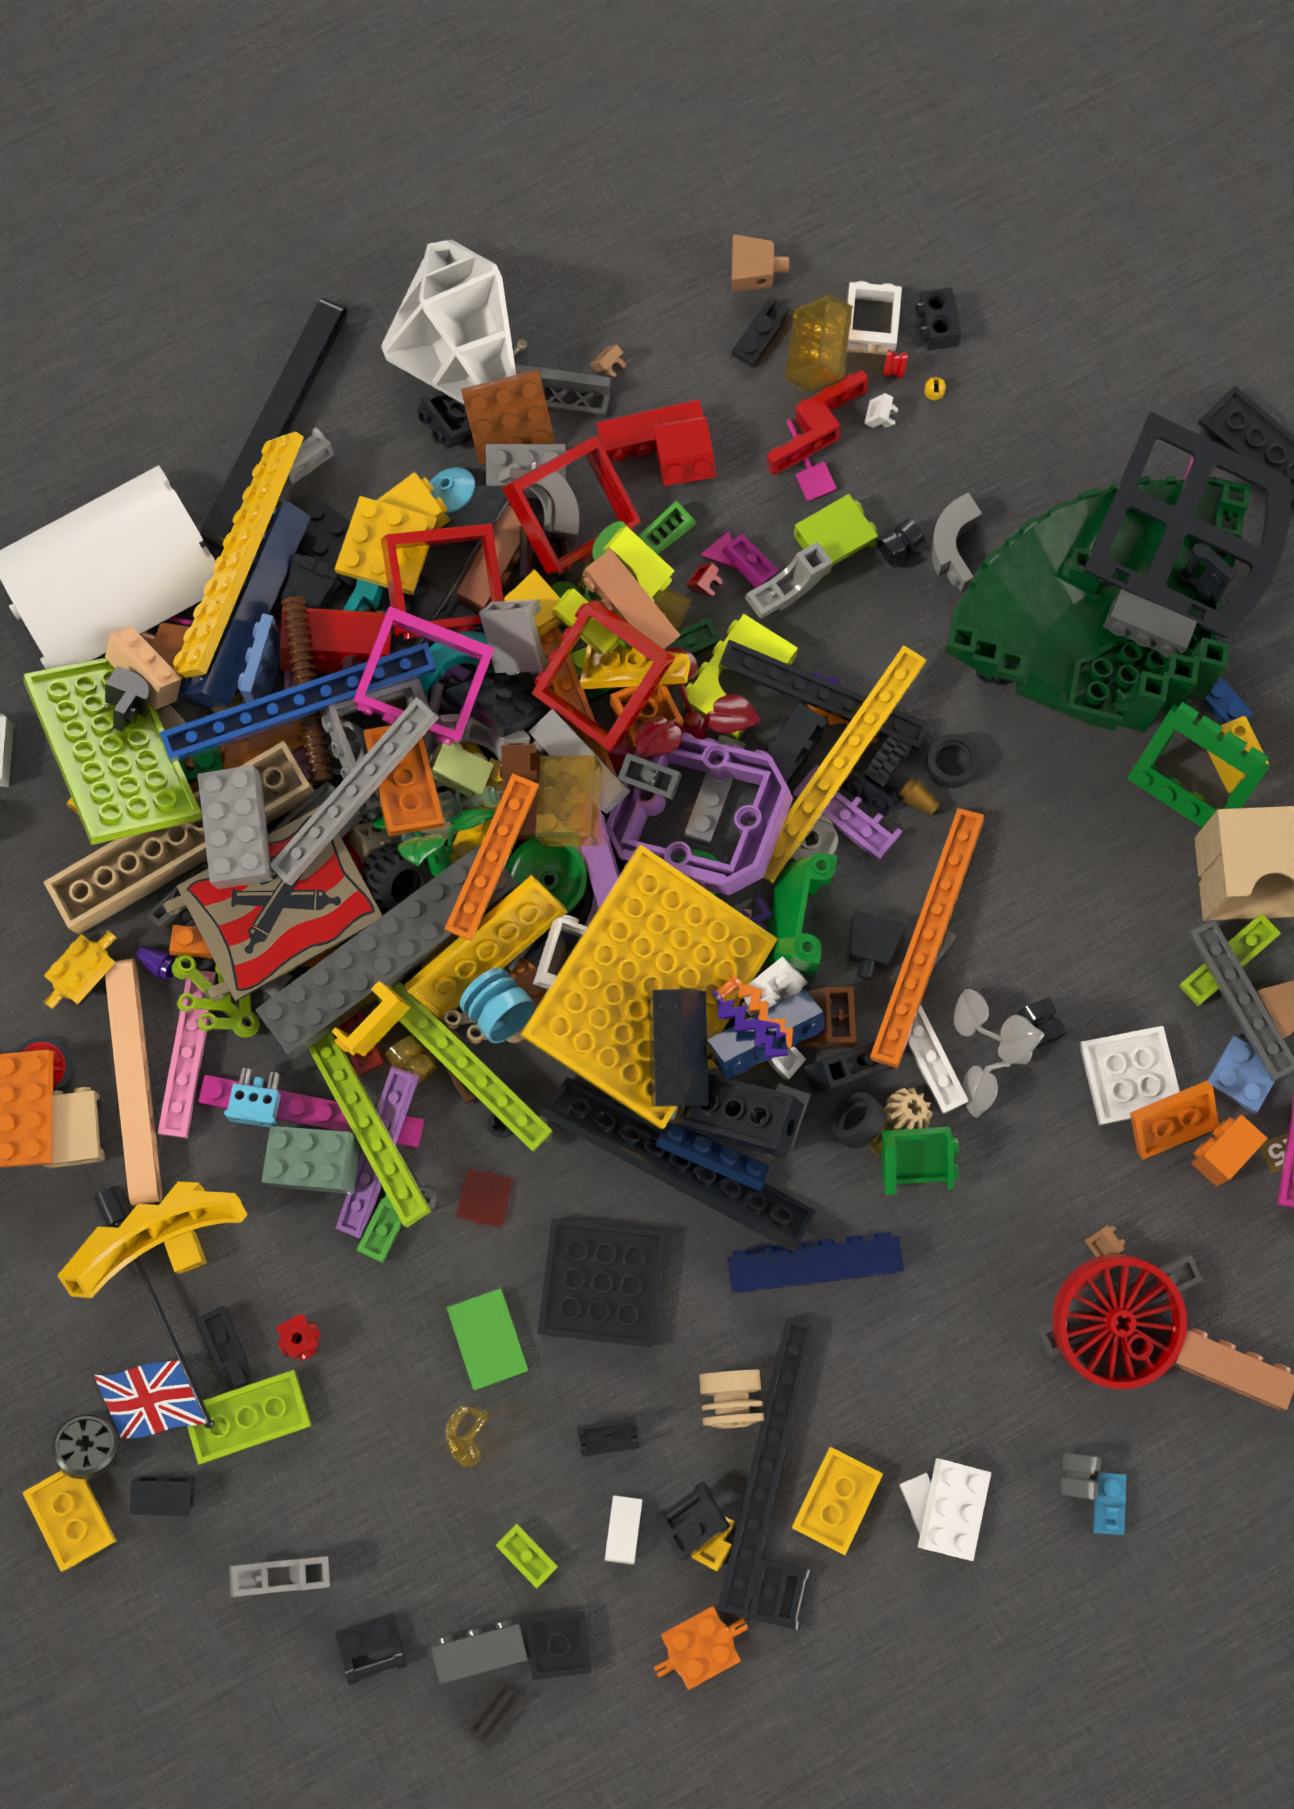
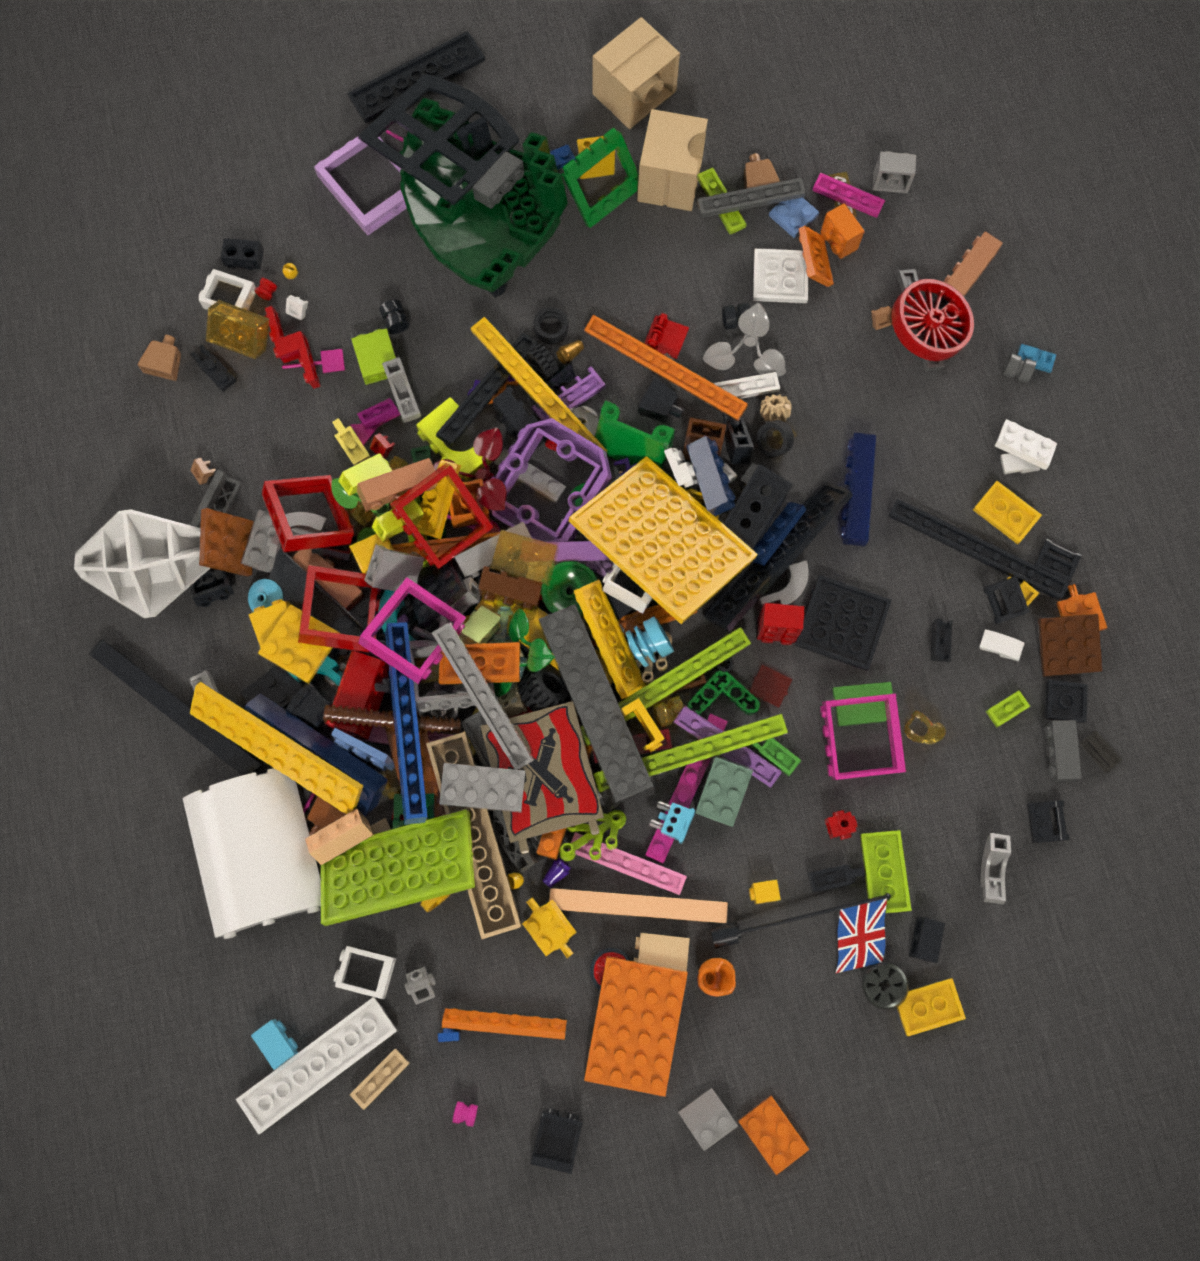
camera: 80 degrees left, 0 degrees up
(52, 1212) = (716, 977): none -> orange piece
(129, 695) = (358, 847): brick -> none
(137, 911) = (516, 880): none -> yellow hinge
(145, 1227) = (746, 913): yellow arch -> none
(406, 1301) = (893, 731): none -> dark pink window
(464, 1133) = (726, 689): none -> green beam
(492, 857) = (554, 613): orange plate -> none
(568, 1183) = (780, 623): none -> red brick
(634, 1200) = (797, 582): none -> light grey arch
(635, 432) = (264, 451): red brick -> none
(646, 1635) = (1070, 644): none -> reddish brown plate
(649, 776) = (520, 503): dark grey brick -> none
(678, 1048) = (710, 531): black slope -> none
(681, 529) = (328, 449): bright green slope -> none
(684, 451) = (288, 434): red slope -> none
(697, 537) = (350, 443): none -> light yellow plate
(731, 1398) = (939, 557): tan wheel -> none
(759, 1025) = (707, 474): piece -> none
(918, 1157) = (806, 408): green panel -> none
(955, 520) = (396, 289): light grey arch -> none
(982, 929) = (666, 336): none -> red hinge
(1058, 483) = (376, 217): none -> lavender window

